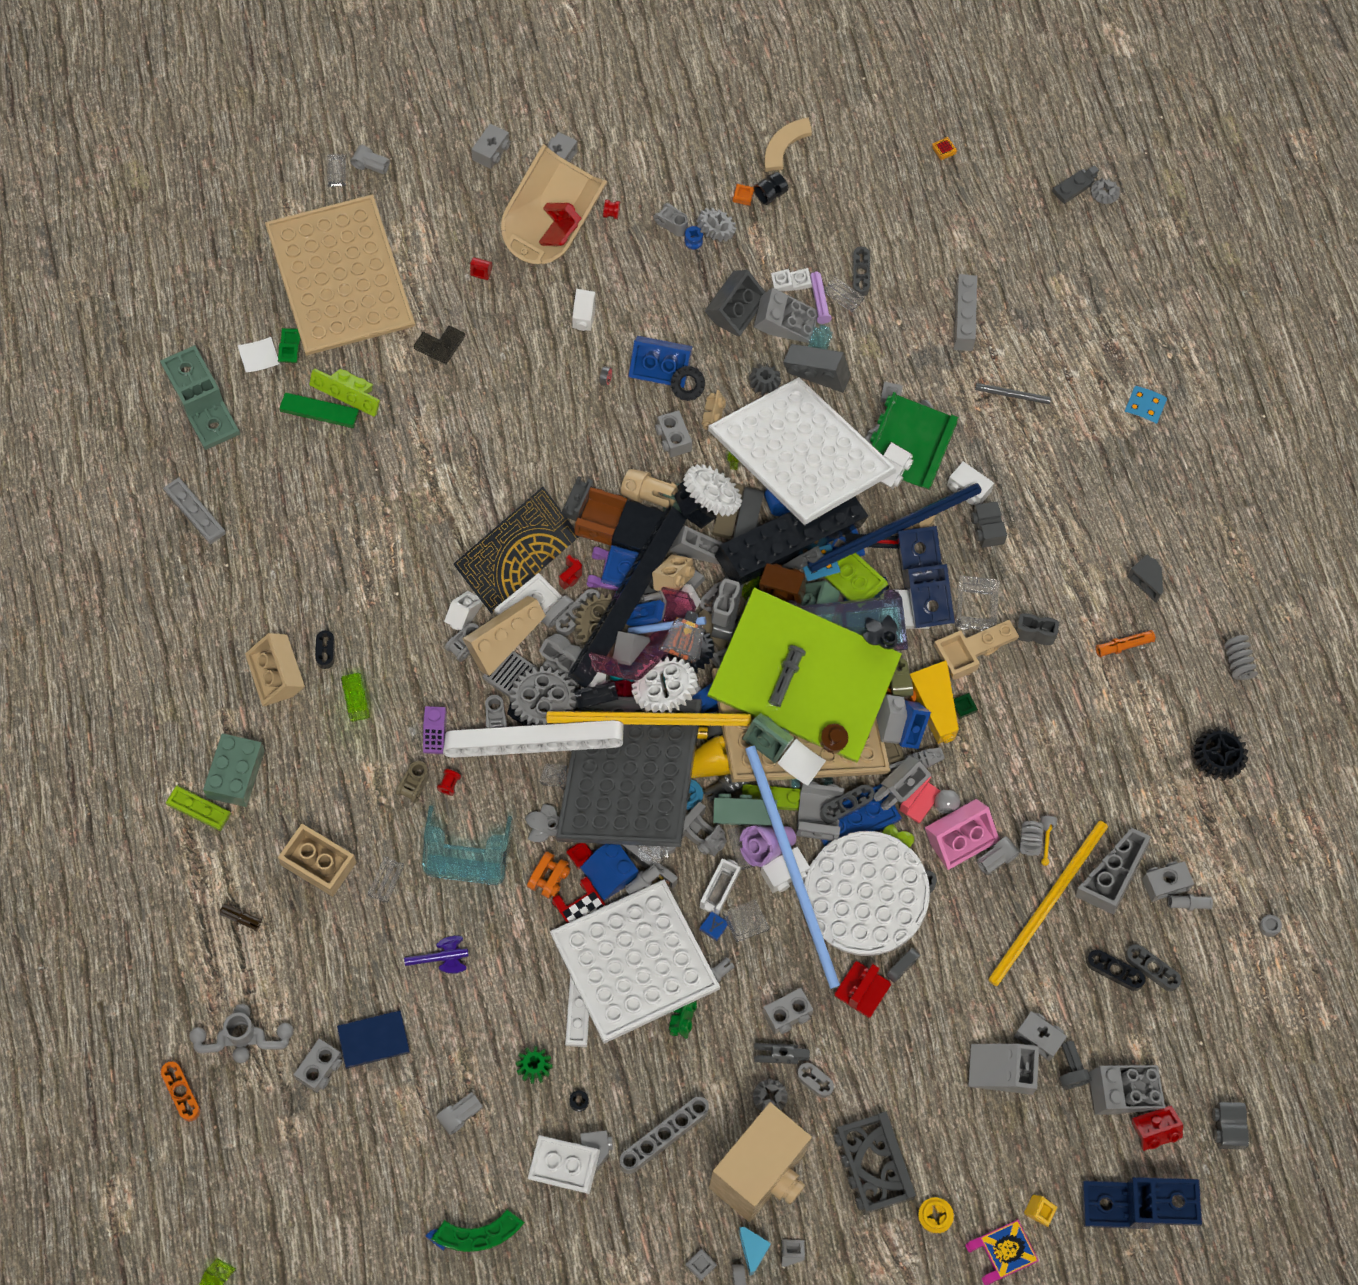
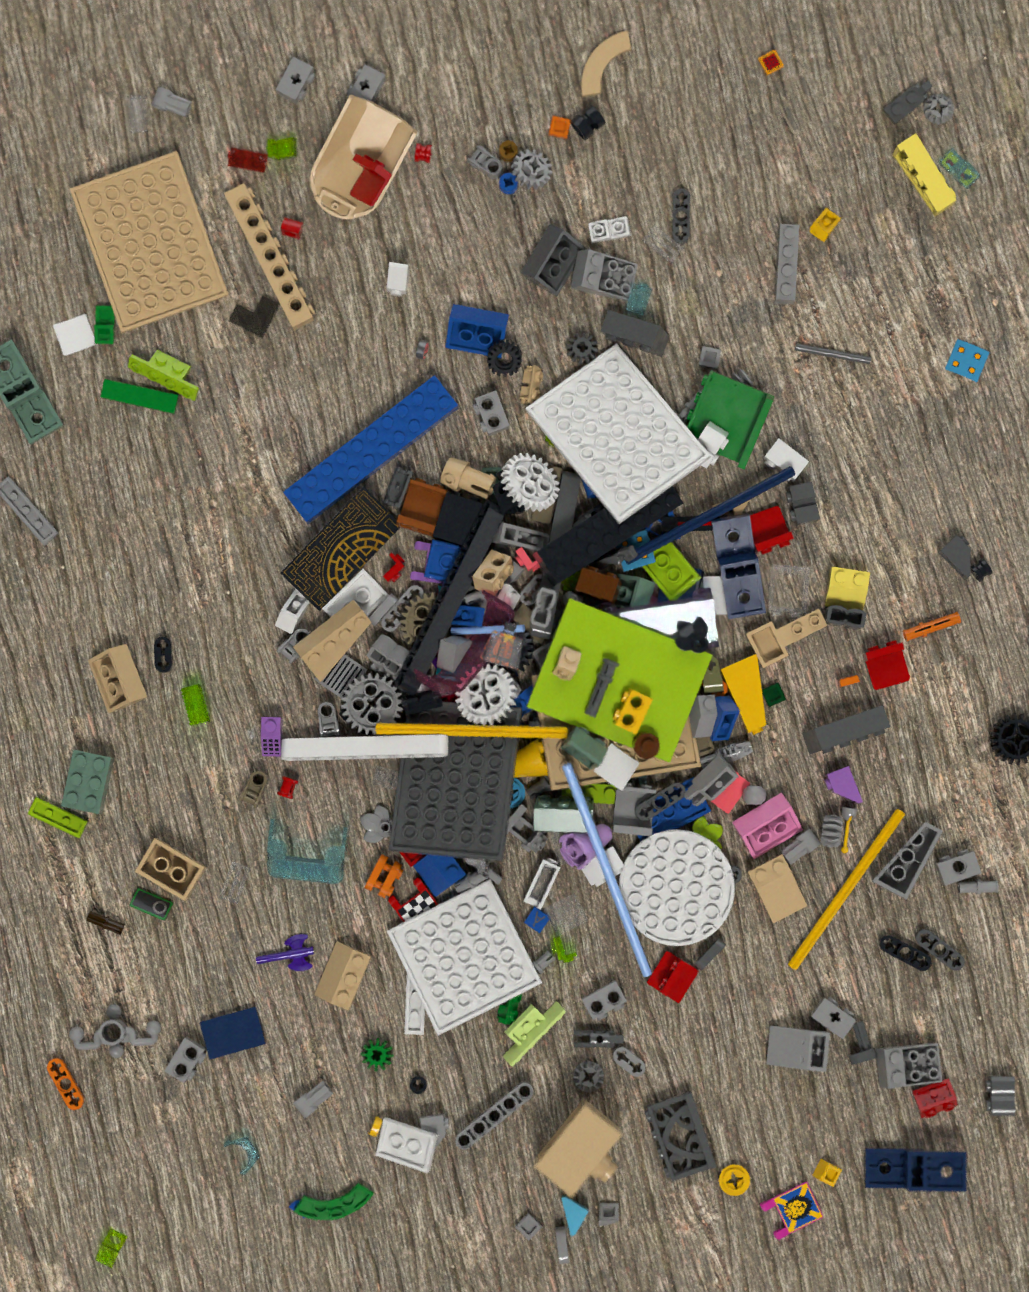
camera: 10 degrees right, 20 degrees up
(292, 900) = (151, 904): none -> slope
(387, 1173) = (249, 1148): none -> clear light blue helmet
(440, 210) = (247, 160): none -> clear red hinge
(474, 202) = (281, 148): none -> clear neon green bracket
(481, 344) = (235, 198): none -> tan brick
(500, 979) = (343, 975): none -> tan slope
(529, 1145) = (375, 1126): none -> yellow tile
(550, 462) = (371, 449): none -> blue brick
(693, 215) = (507, 155): none -> pearl gold wheel
(704, 1040) = (529, 1029): none -> yellowish green bracket
(705, 568) = (523, 559): none -> coral bracket
(736, 953) = (557, 947): none -> clear neon green bracket
(750, 651) = (567, 664): none -> tan bracket
(820, 299) = (638, 250): lavender axle -> none
(822, 703) = (637, 713): none -> yellow brick
(957, 548) = (769, 530): none -> red bracket
(974, 897) = (777, 888): none -> tan slope
(1000, 283) = (824, 224): none -> yellow slope
(1037, 599) = (847, 588): none -> light yellow slope
(1041, 738) = (846, 729): none -> dark grey wedge
(1041, 794) = (843, 784): none -> medium lavender slope
(1042, 692) = (848, 681): none -> orange tile
(1081, 677) = (886, 665): none -> red bracket
(1094, 239) = (924, 174): none -> light yellow wedge
(1127, 241) = (959, 169): none -> clear light blue slope
(1173, 590) = (980, 570): none -> black wheel

